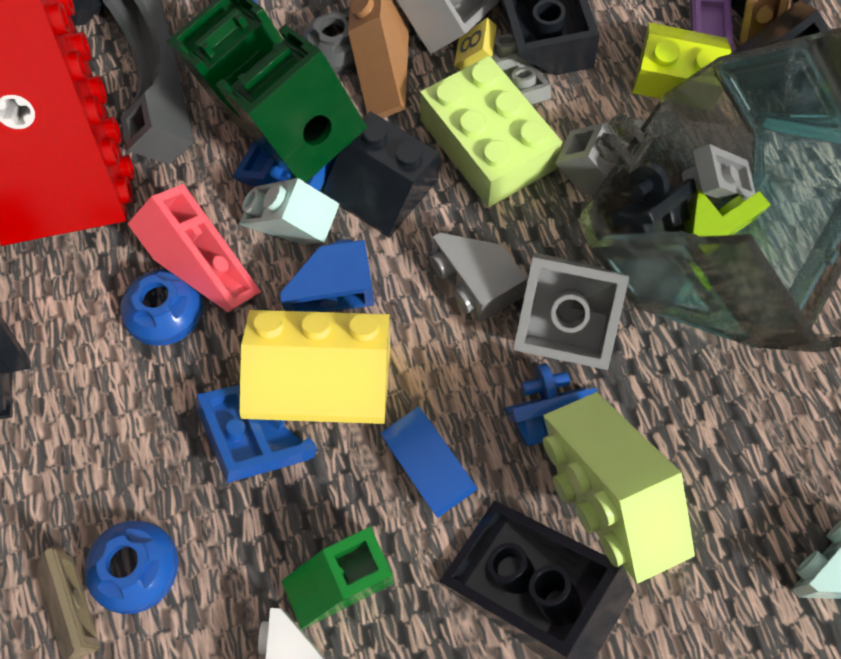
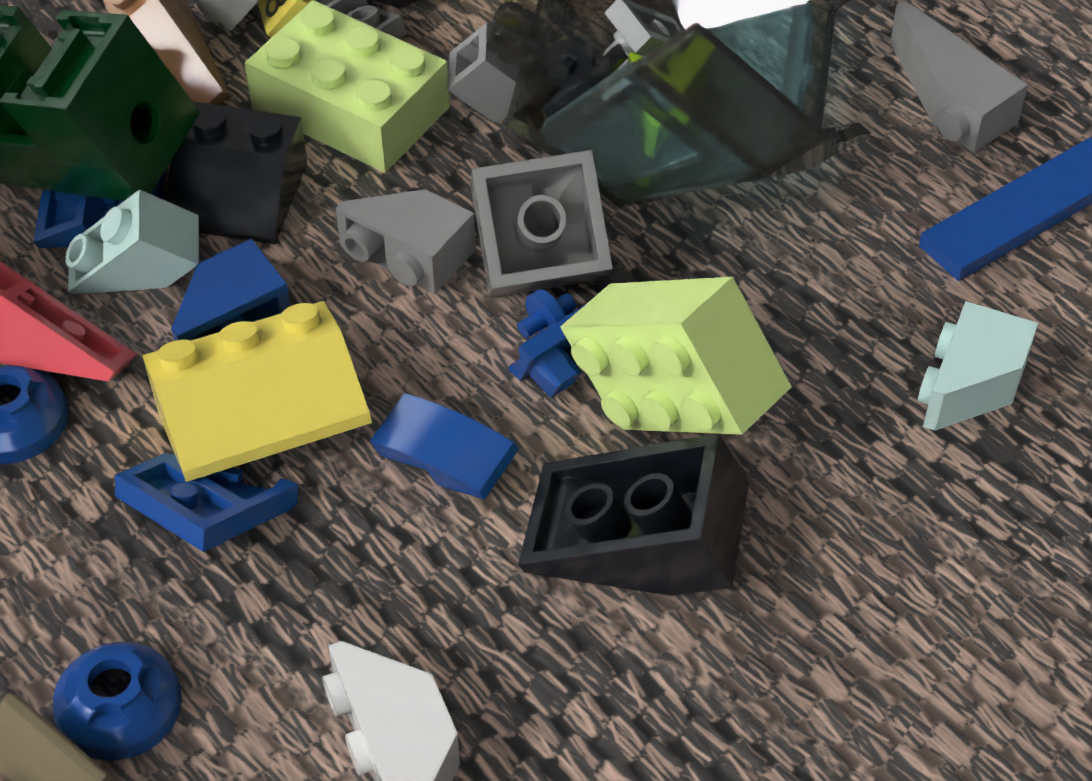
camera: 25 degrees left, 15 degrees down
(337, 578) = (399, 587): green slope -> none

